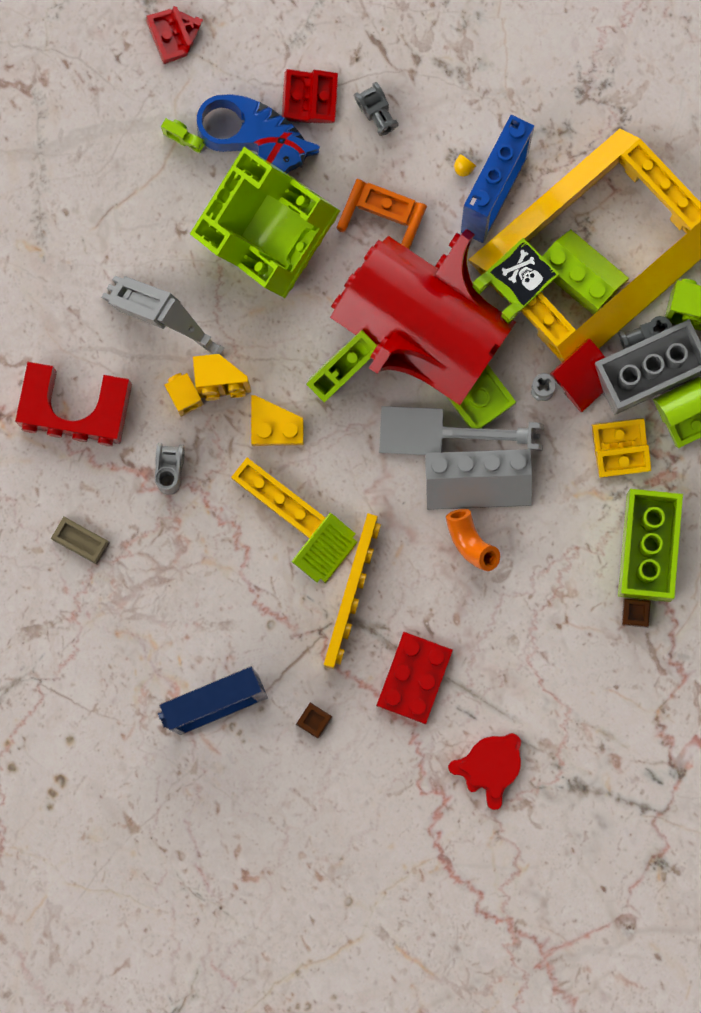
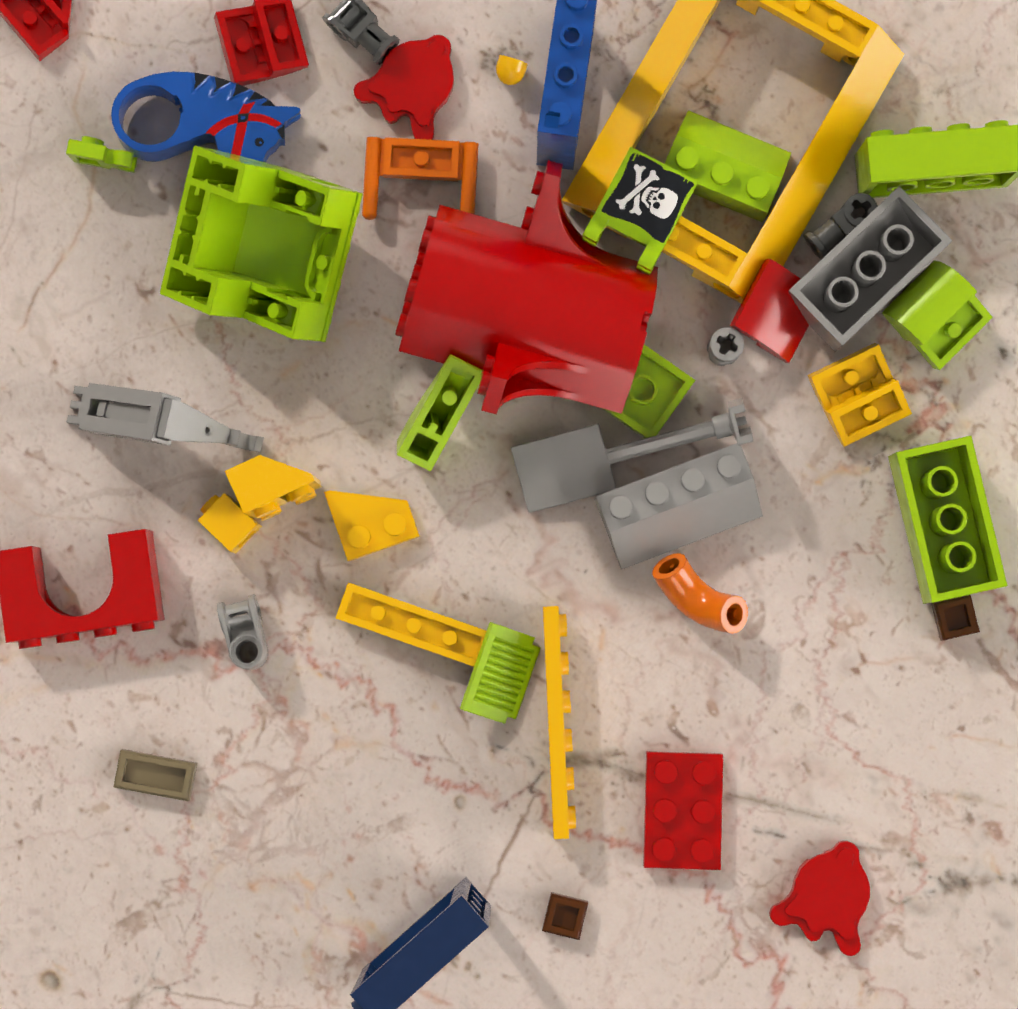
camera: 20 degrees left, 5 degrees up
(398, 154) = (412, 83): none -> red tile

